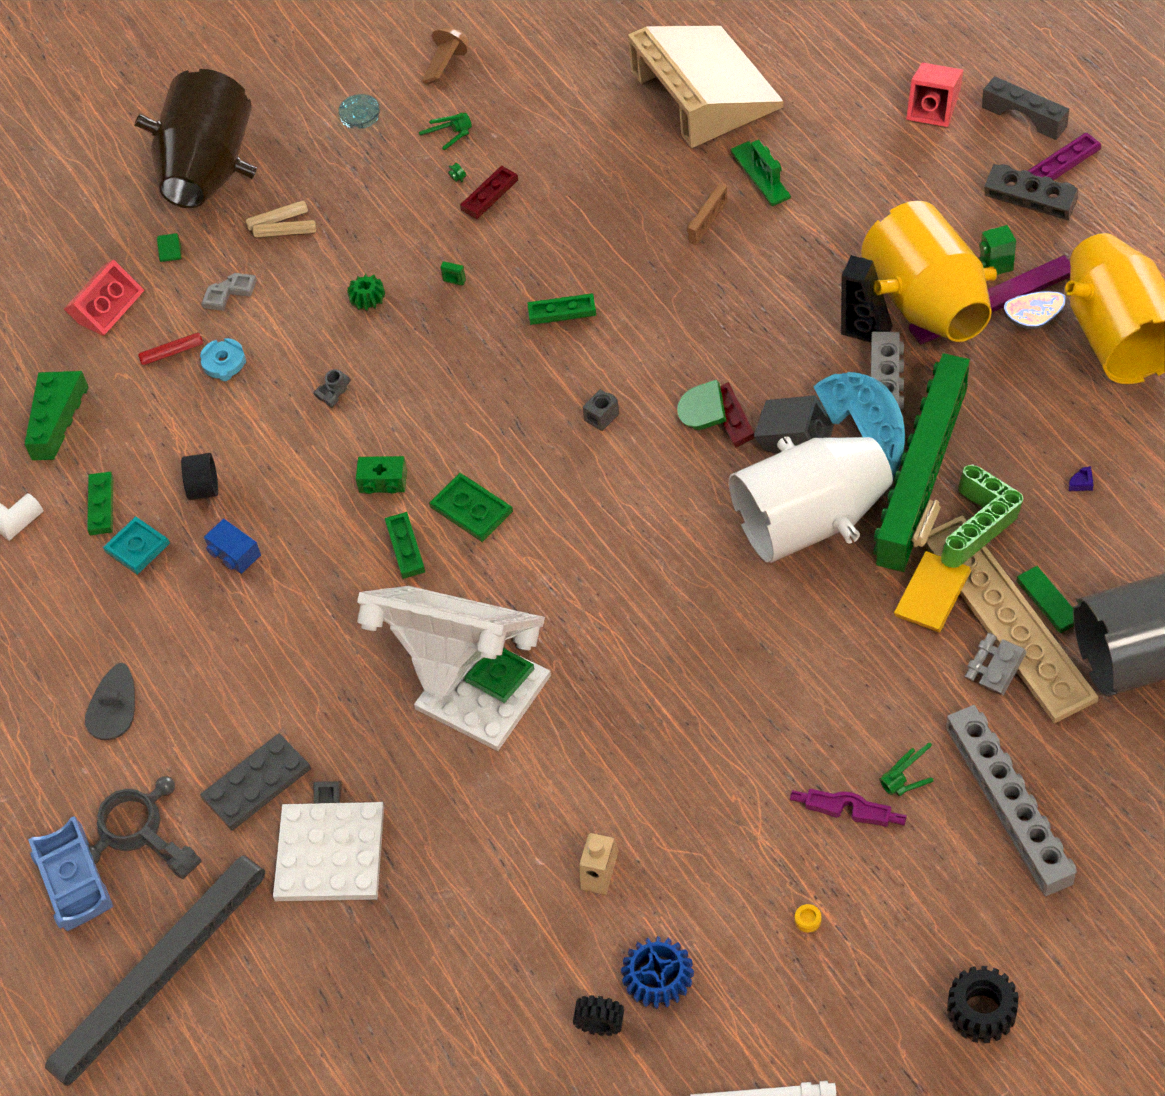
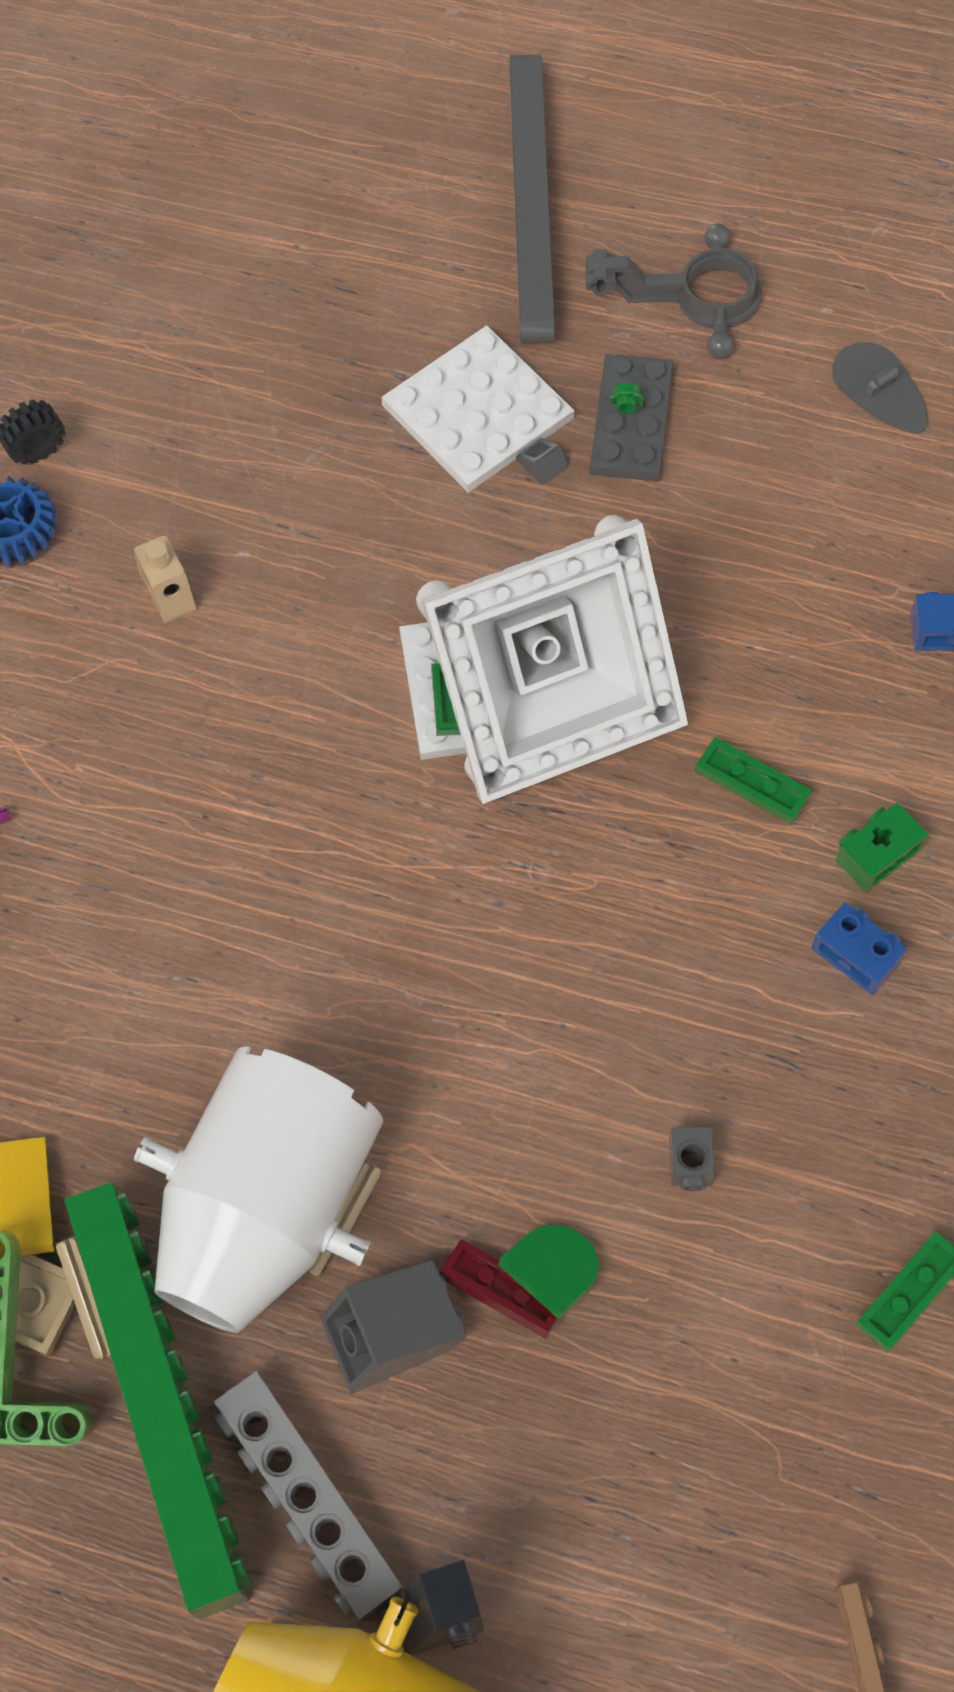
camera: 135 degrees right, 10 degrees up
(70, 875) = (711, 195): medium blue piece -> none
(252, 776) = (627, 397): none -> green plate
(439, 441) = (859, 947): none -> blue brick
(471, 507) = (728, 896): green tile -> none
(871, 408) = (276, 1404): medium azure plate -> none

